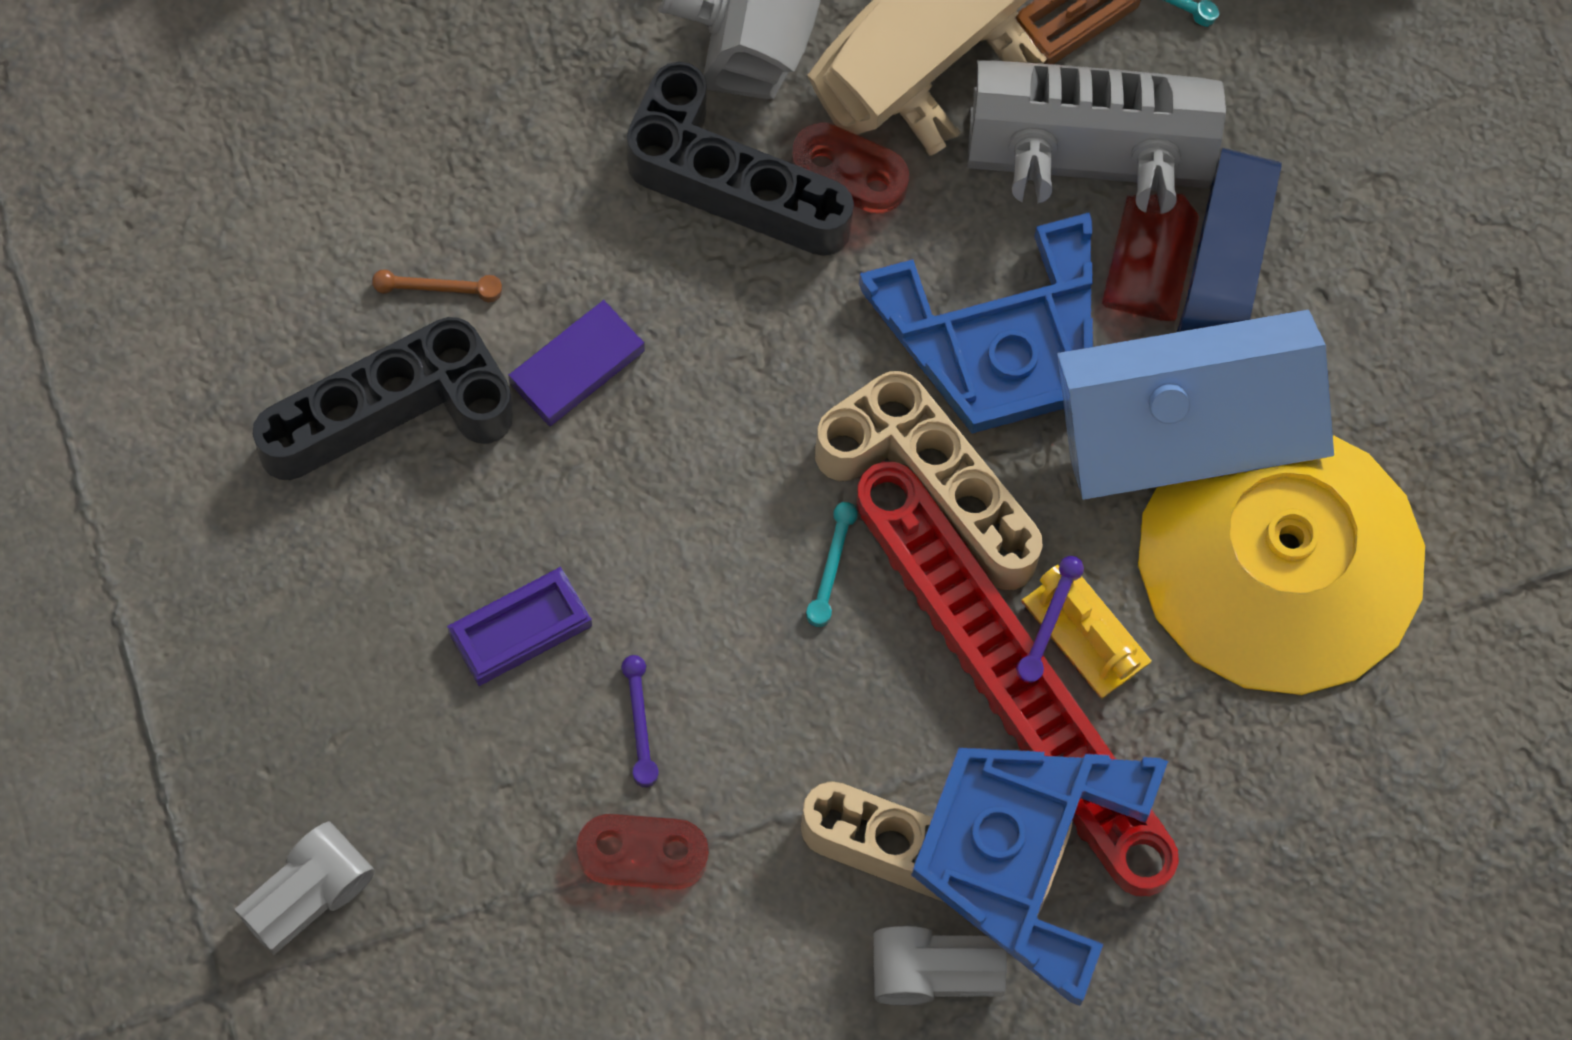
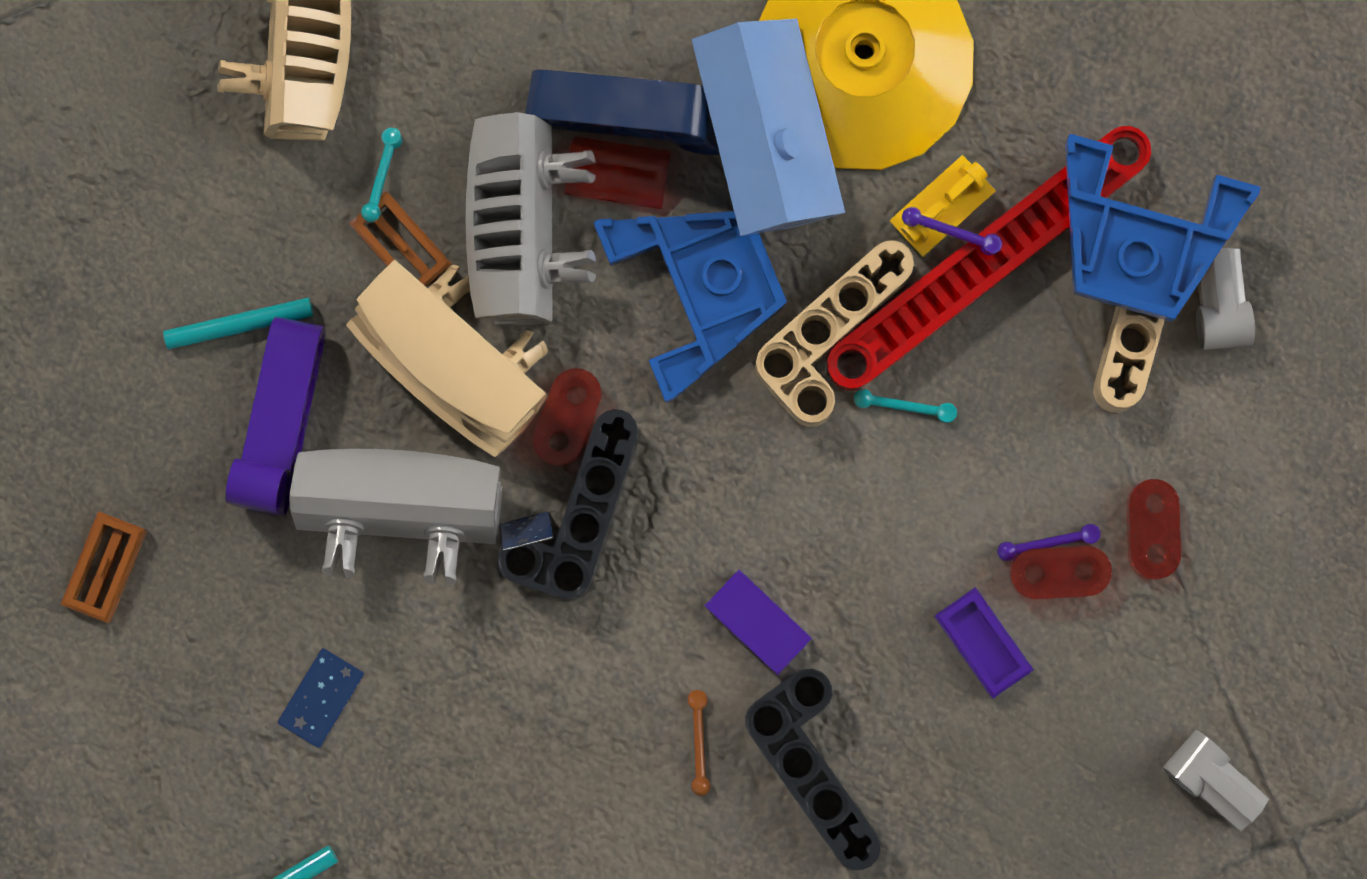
camera: 85 degrees left, 15 degrees up
(598, 725) = (1059, 572): none -> clear red plate
(714, 99) = (526, 530): none -> dark blue sticker

